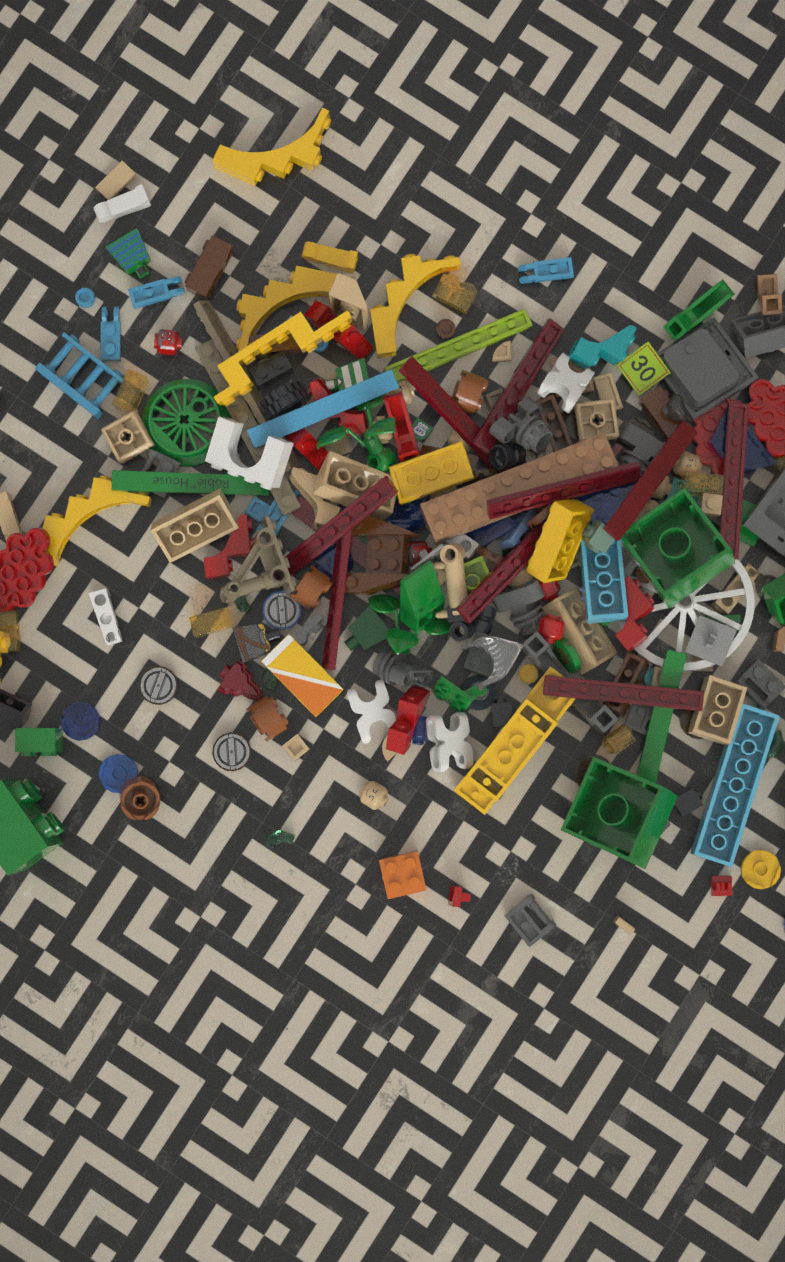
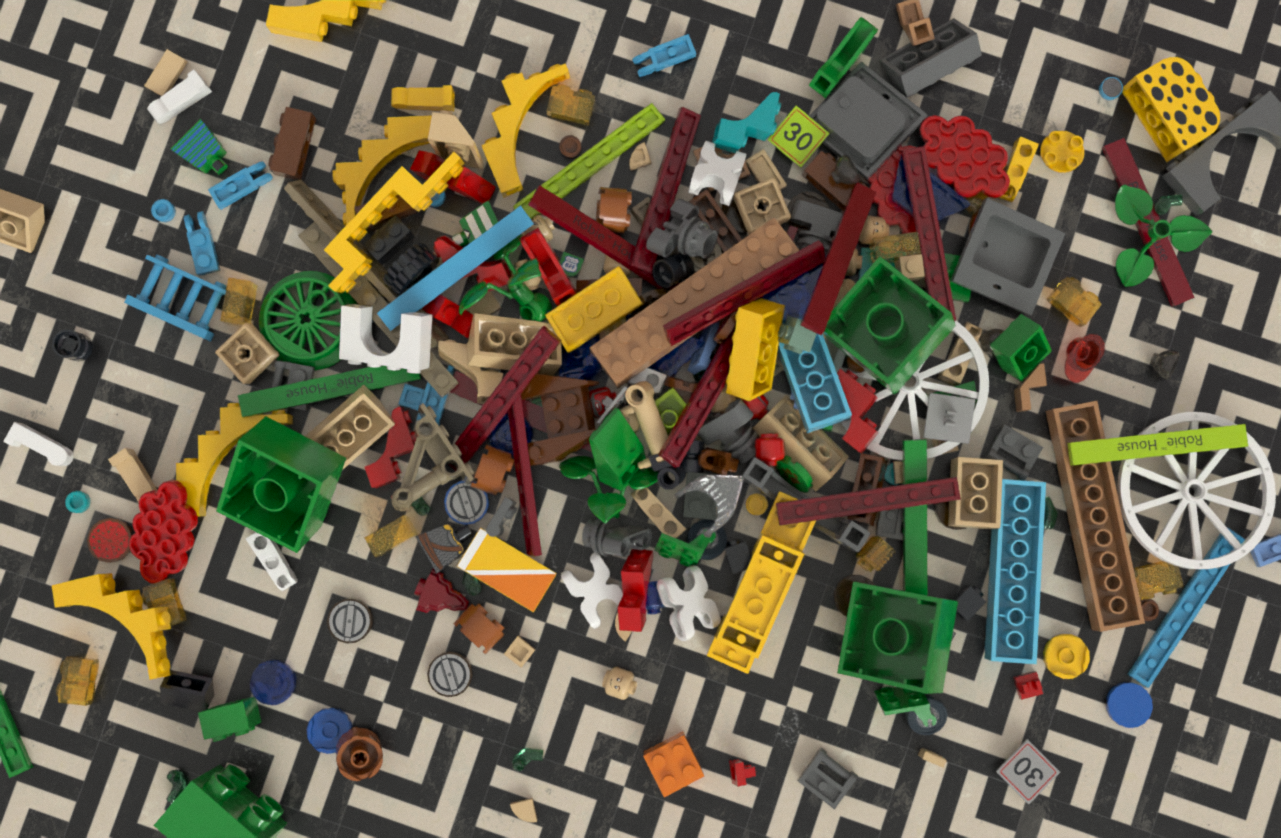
camera: 15 degrees left, 0 degrees up
(131, 554) = (280, 484): none -> green brick
(167, 342) = (266, 237): red head -> none
(267, 882) = (525, 810): none -> tan tile
(367, 630) = (566, 502): dark green torso -> none
(442, 659) = (658, 513): none -> tan leg
(504, 628) = (717, 461): none -> reddish brown hips
(626, 884) = (923, 711): none -> green plate
(702, 957) = (1027, 771): none -> light grey piece

